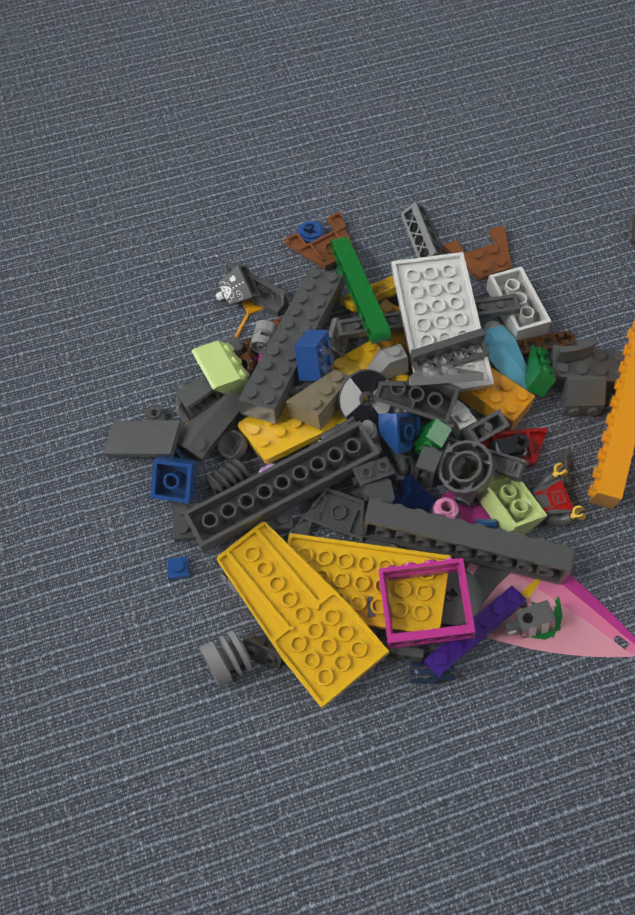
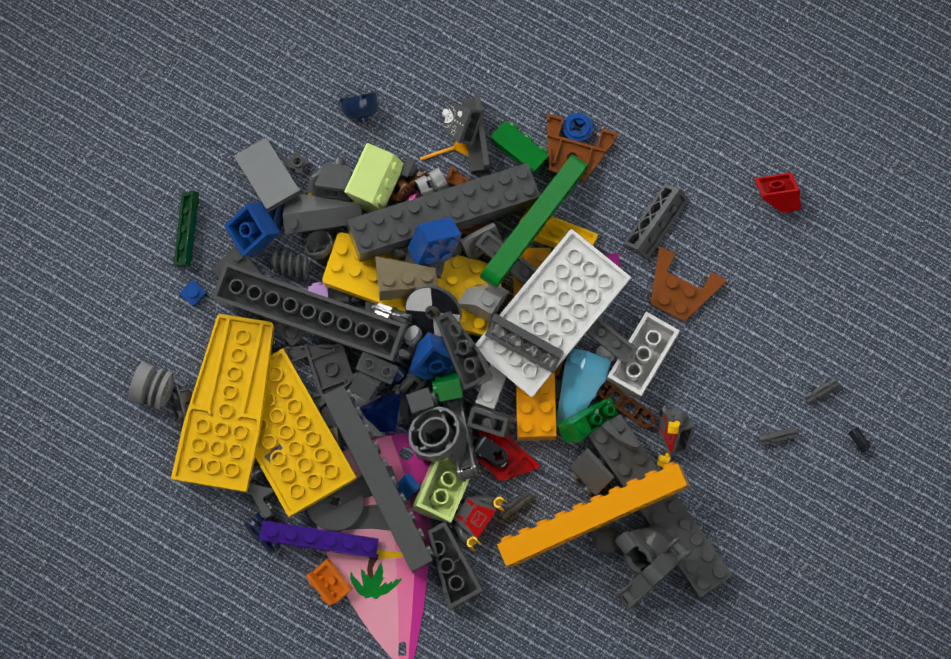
camera: 50 degrees right, 15 degrees up
(124, 531) = (186, 229): none -> dark green plate
(157, 341) = (359, 106): none -> dark blue cylinder
(289, 271) = (519, 147): none -> green brick
(429, 636) = (297, 443): dark pink window -> none
(445, 374) = (491, 354): light grey wing -> none
(446, 507) = (391, 441): bright pink head -> none
(470, 155) = (780, 191): none -> red slope
(520, 652) = (329, 582): none -> orange bracket
(539, 617) = (358, 573): dark grey torso -> none
(592, 547) = (455, 570): none -> dark grey wedge
(595, 322) = (676, 433): none -> dark grey torso

